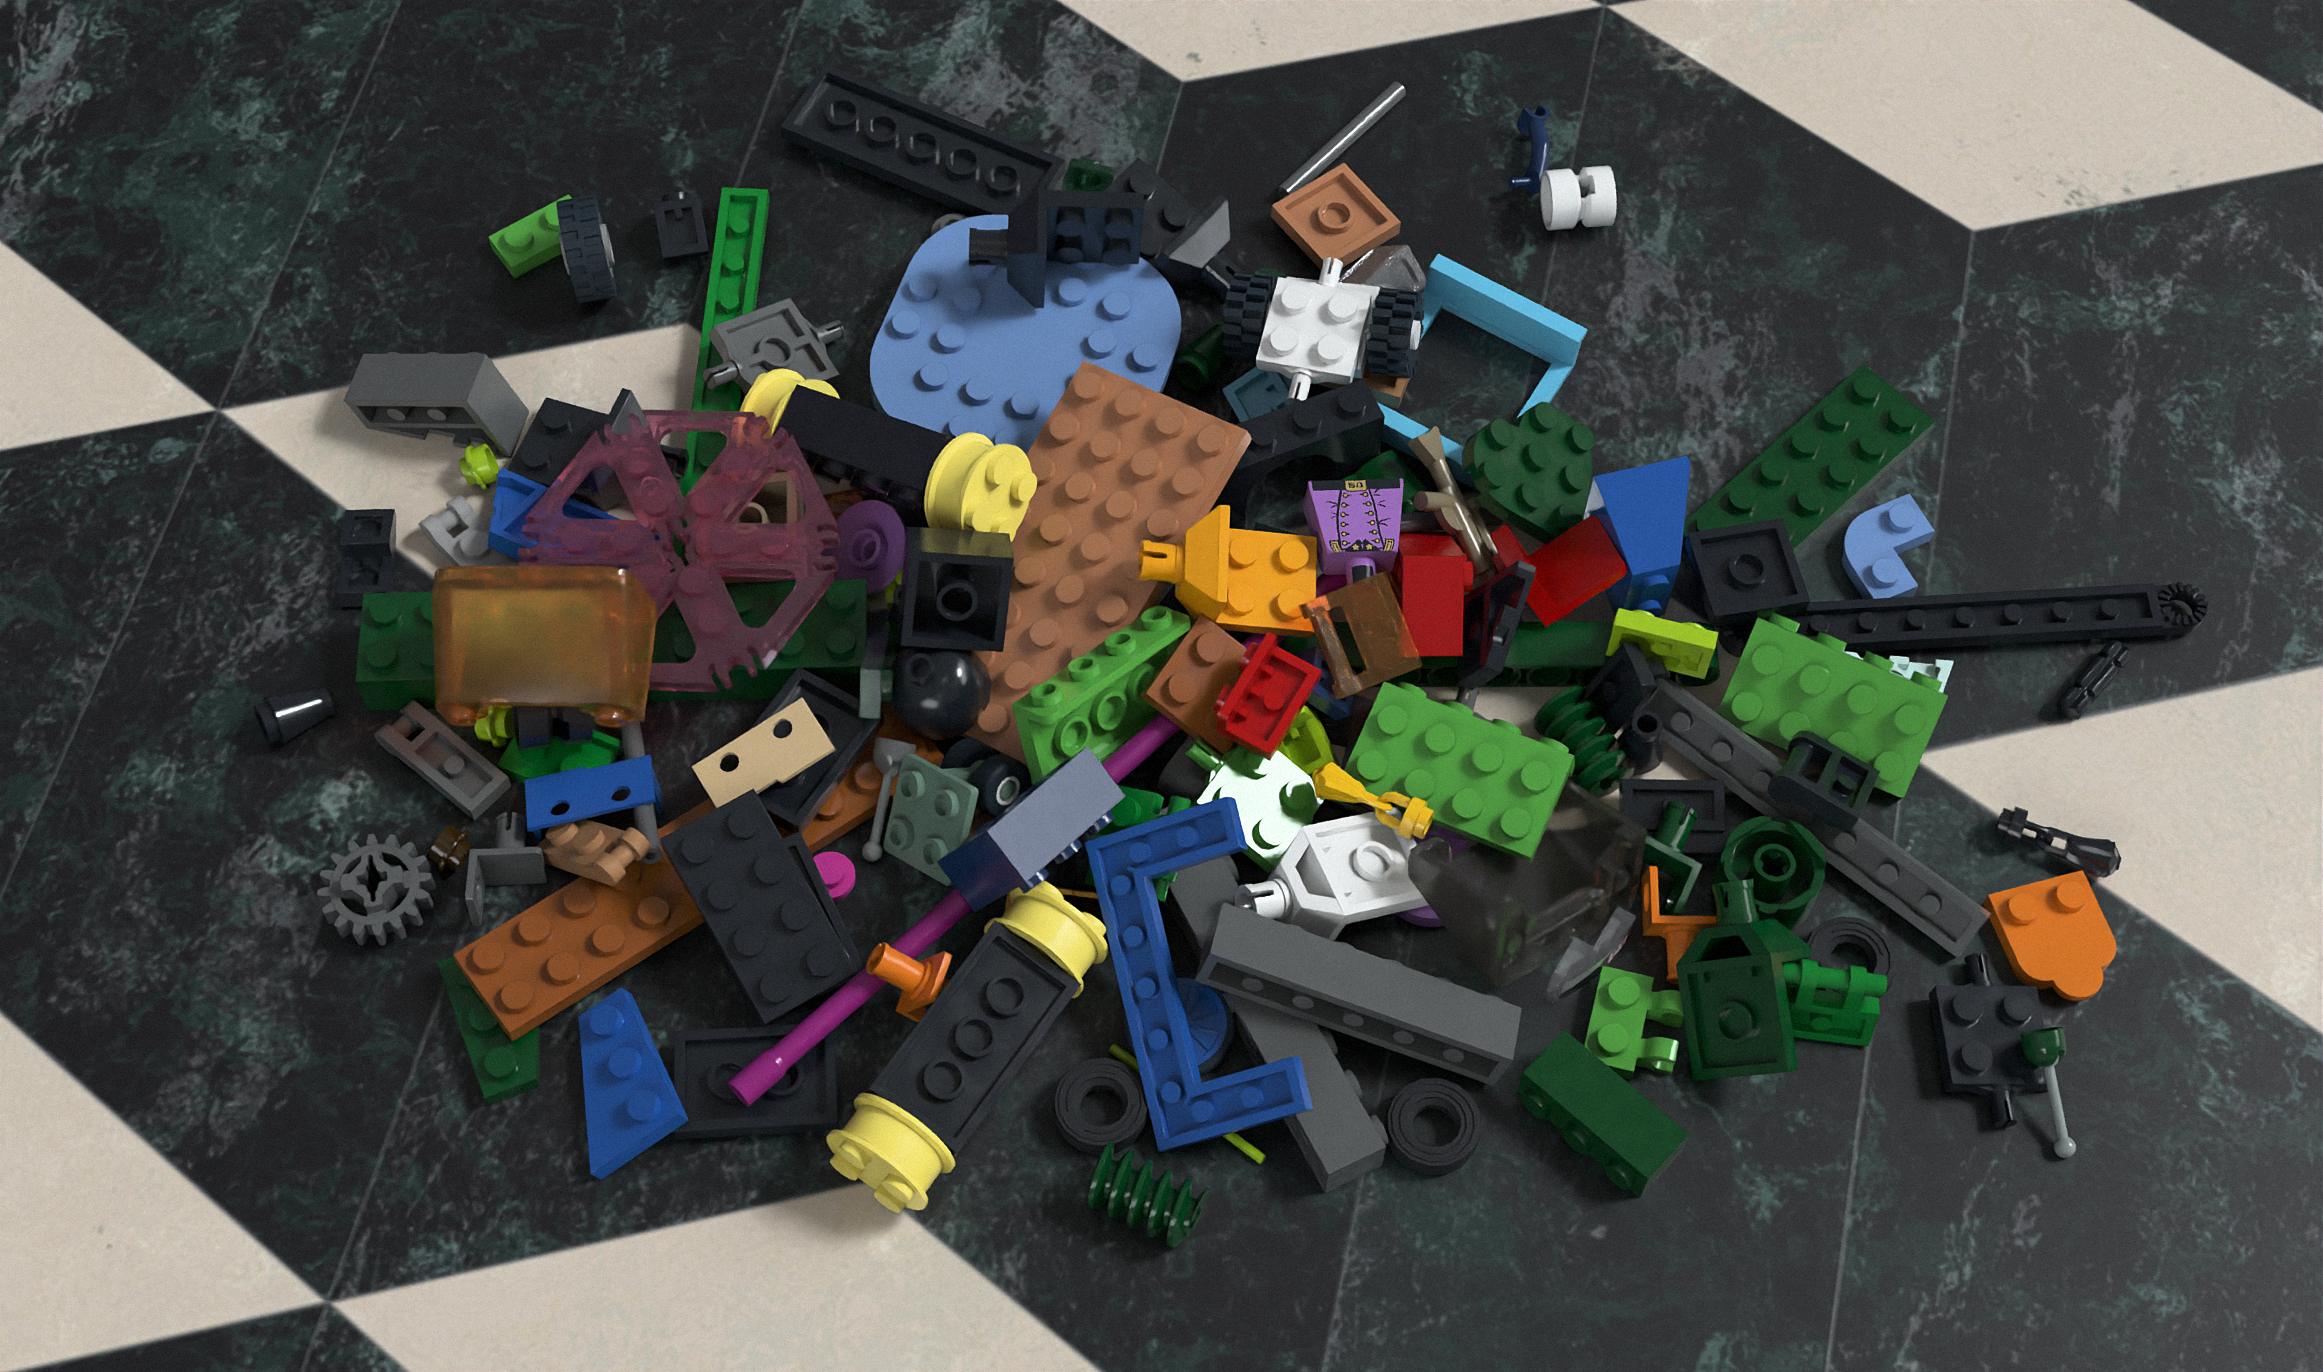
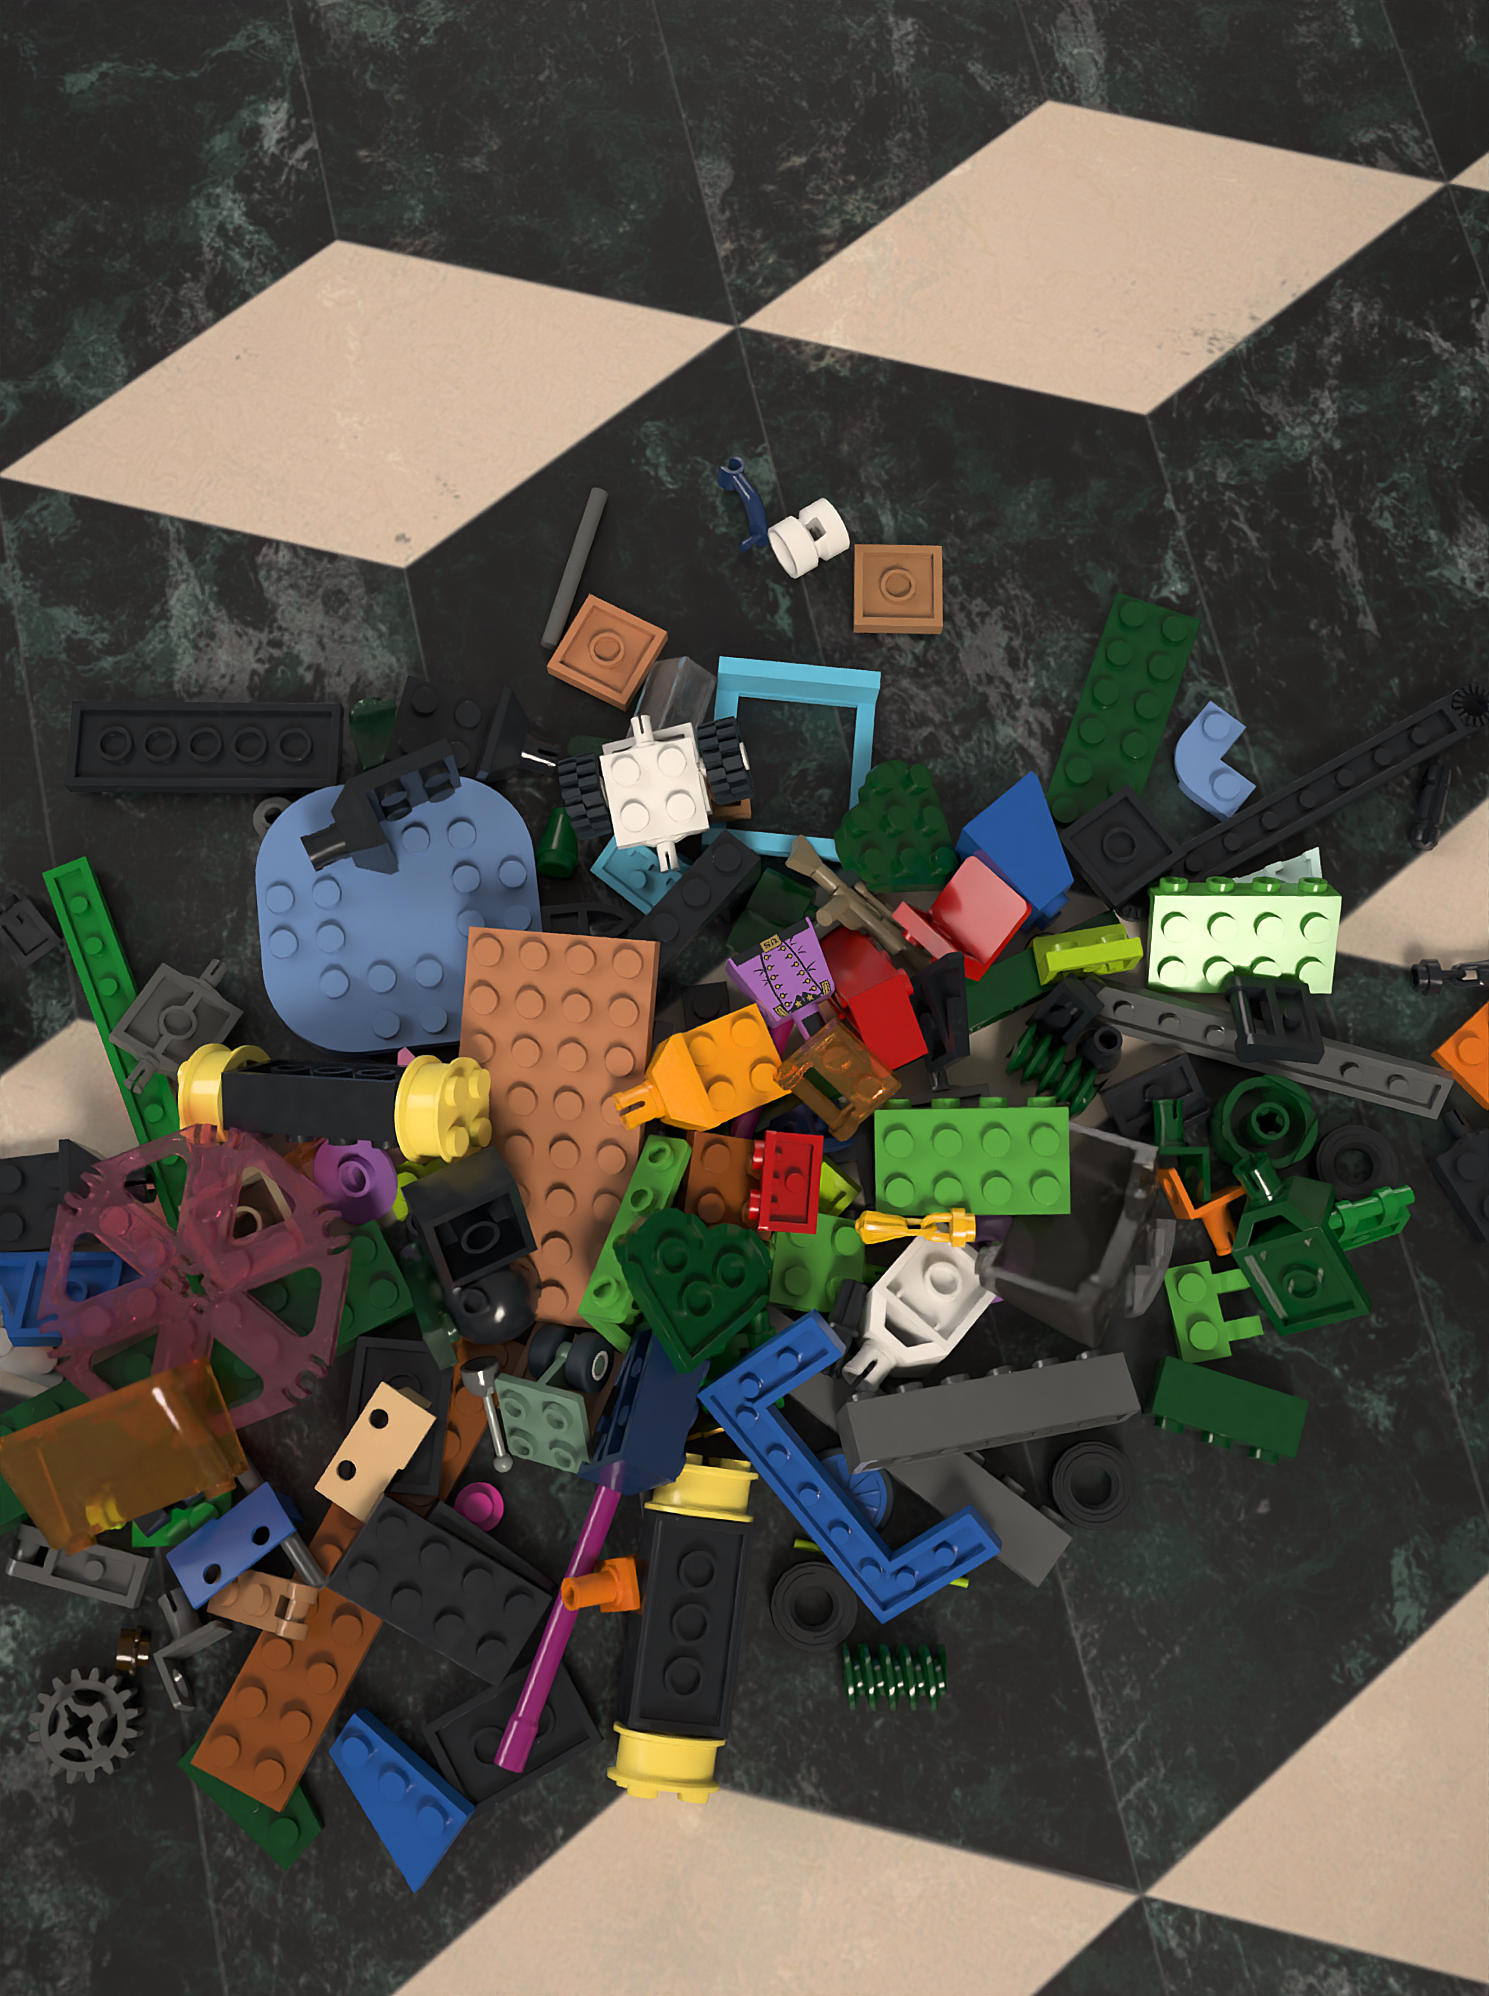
camera: 25 degrees left, 15 degrees up
(1133, 729) = (693, 1281): none -> dark green plate
(1246, 864) = (844, 1319): none -> black axle
(1644, 276) = (898, 589): none -> medium nougat plate

